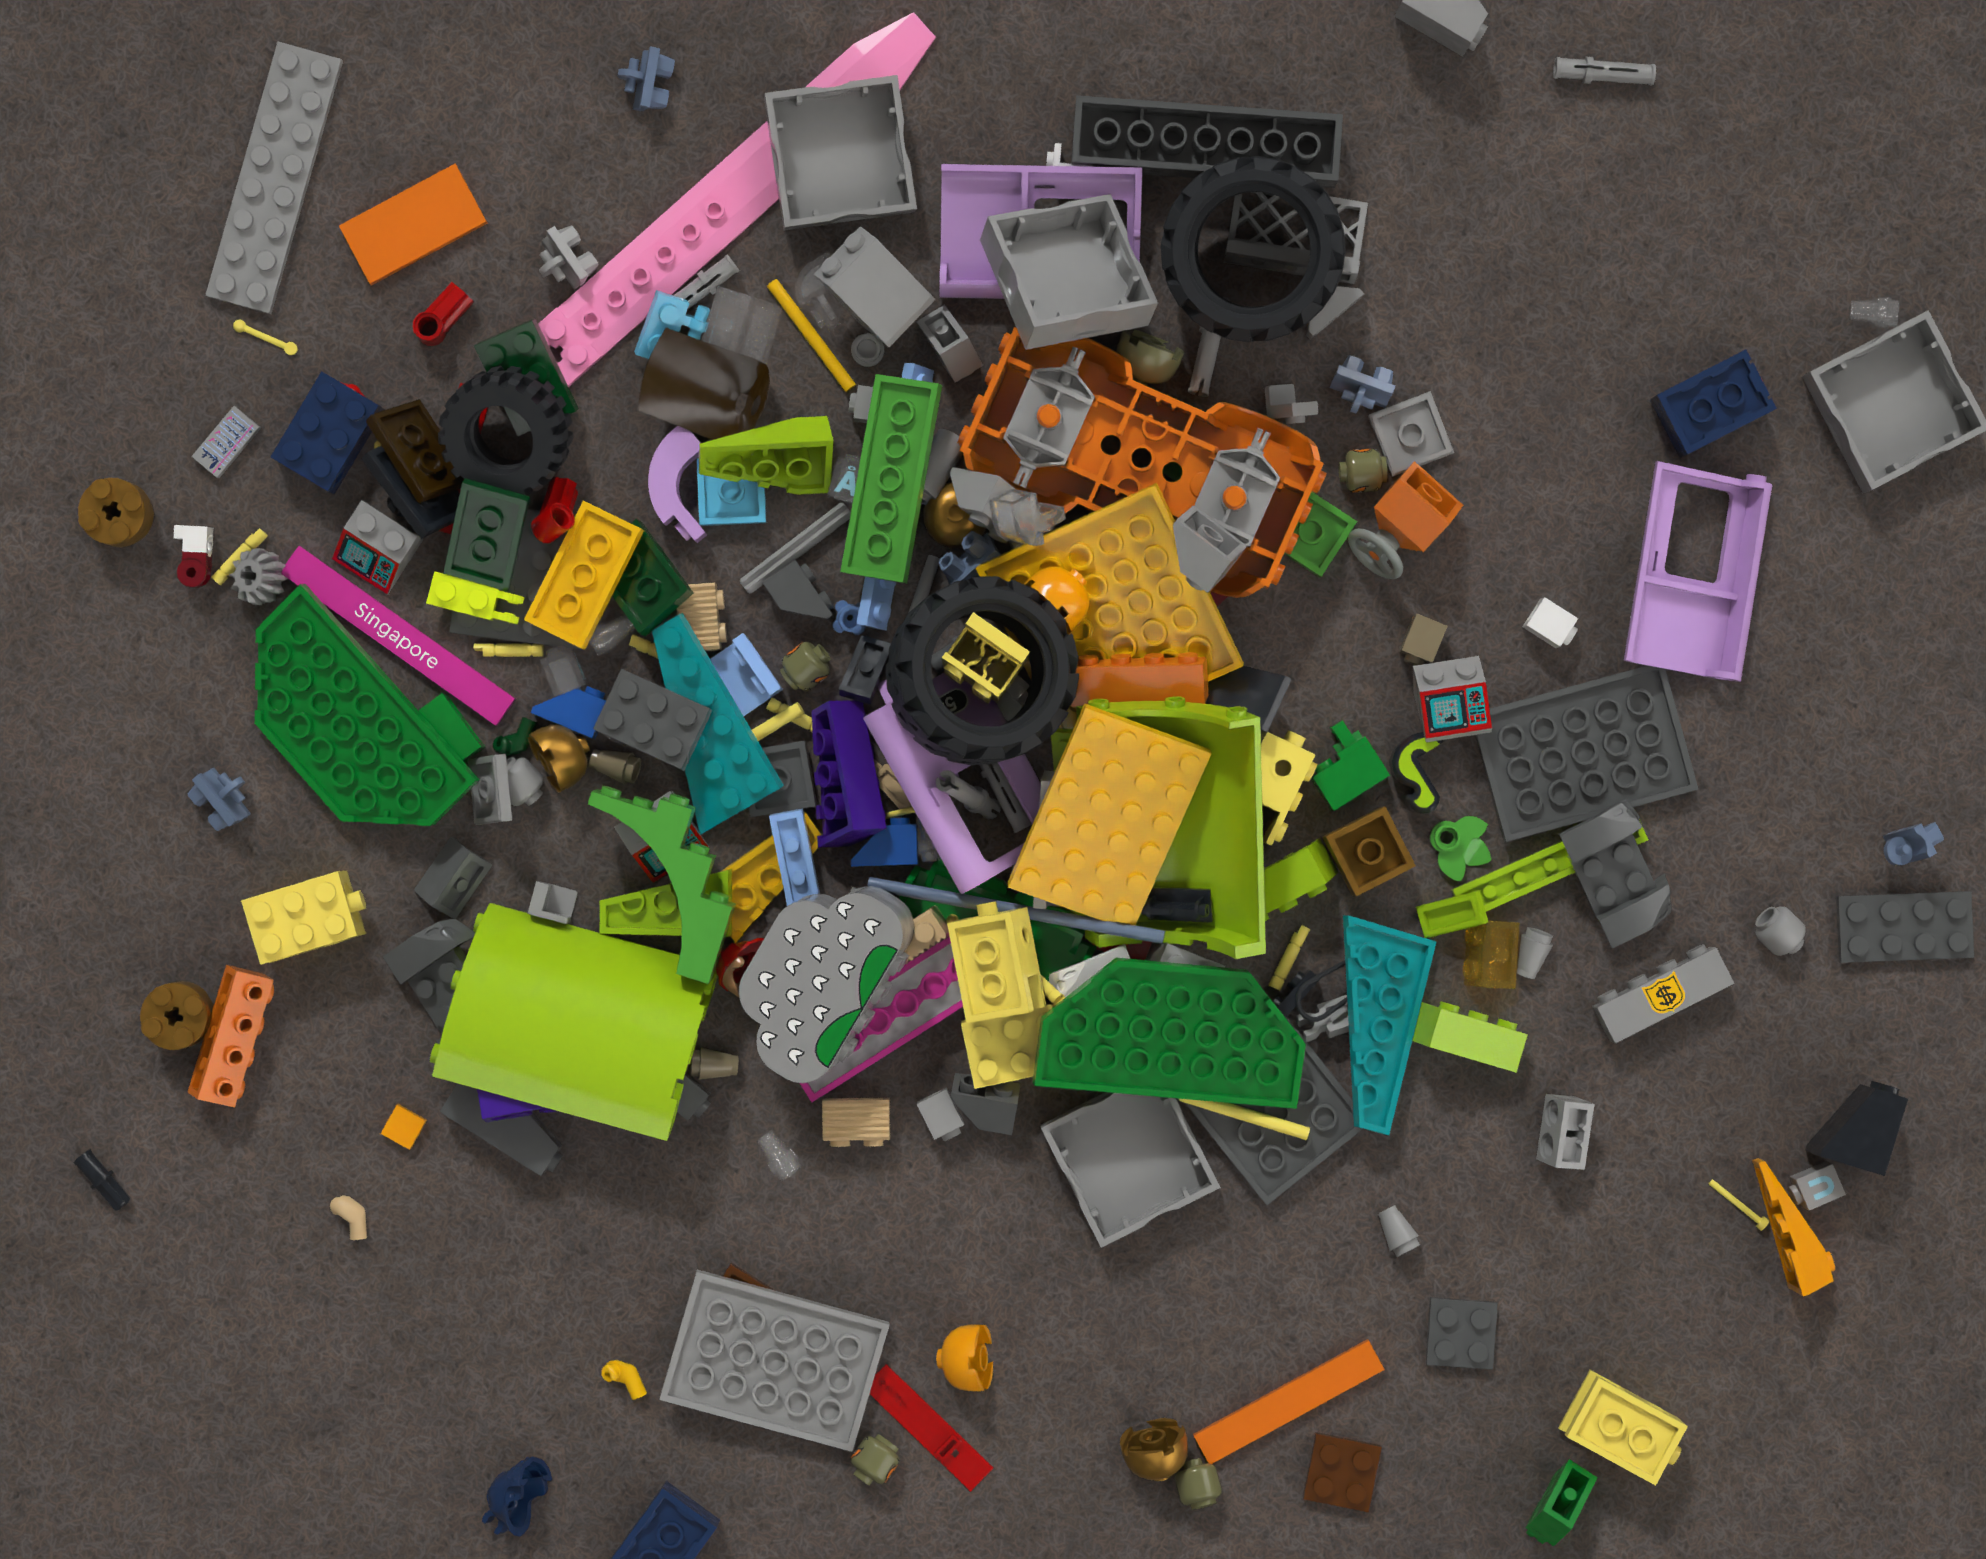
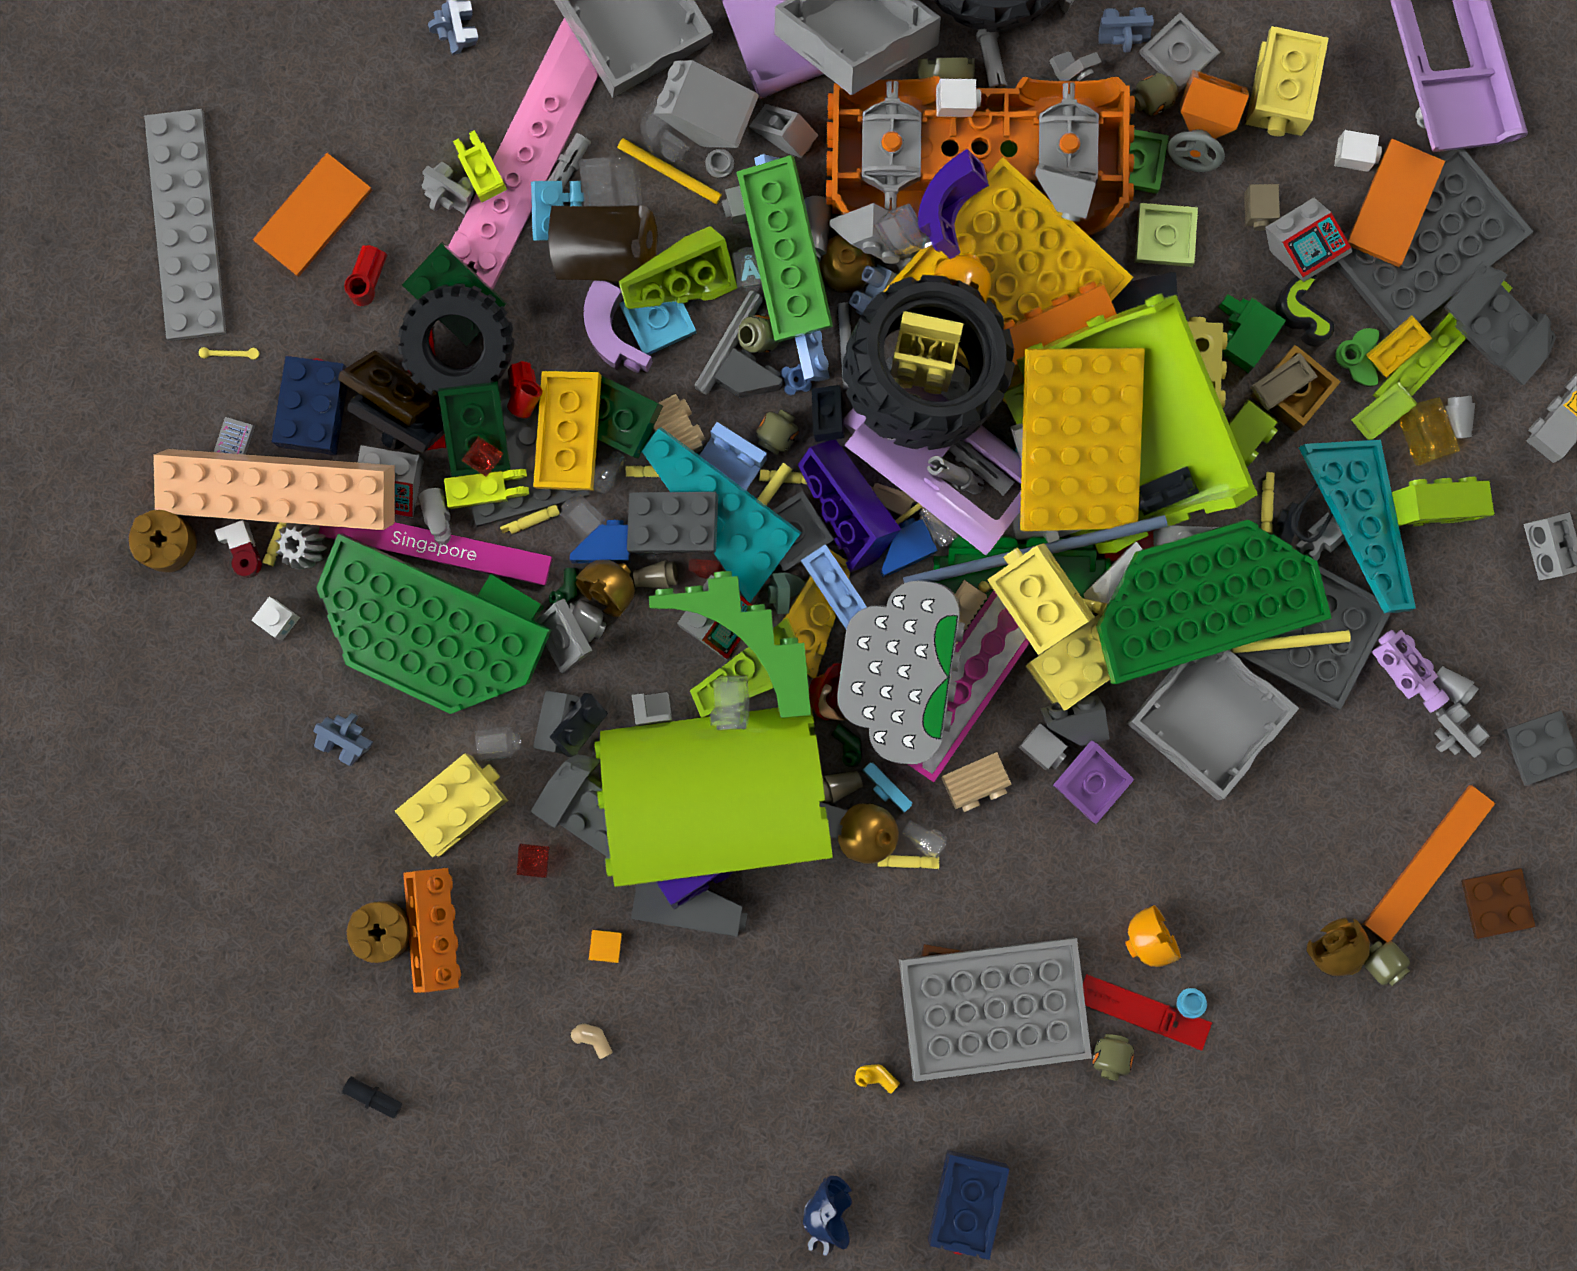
camera: 30 degrees left, 5 degrees down
(200, 644) = (275, 618): none -> white brick
(253, 510) = (275, 489): none -> light nougat brick
(365, 1008) = (533, 860): none -> clear red tile
(377, 871) = (497, 743): none -> clear brick
(412, 604) = (436, 514): none -> light grey hinge
(469, 888) = (578, 725): none -> black plate
(482, 568) = (482, 456): none -> clear red tile
(609, 251) = (480, 168): none -> neon yellow hinge
(633, 934) = (731, 703): none -> clear brick
(669, 779) = (704, 568): none -> clear red tile
(720, 1127) = (868, 833): none -> pearl gold cylinder
(741, 832) = (782, 588): none -> sand green plate
(743, 1029) = (851, 745): none -> dark green arm
(751, 1171) = (910, 862): none -> light yellow wheel
(760, 1088) = (886, 788): none -> medium azure plate
(825, 554) = (756, 334): none -> olive head
(976, 1172) = (1093, 782): none -> medium lavender plate
(980, 1439) = (1191, 1003): none -> medium azure plate
(1076, 501) = (945, 196): none -> dark purple arch
(1137, 399) = (957, 97): none -> white brick
(1308, 627) = (1166, 234): none -> yellowish green plate
(1354, 841) = (1283, 381): none -> dark tan tile
(1356, 1194) = (1404, 668): none -> lavender brick
(1374, 1282) = (1451, 721): none -> light grey hips
(1498, 852) = (1399, 346): none -> yellow plate
(1505, 519) = (1287, 81): none -> light yellow torso
(1564, 697) = (1395, 202): none -> orange tile

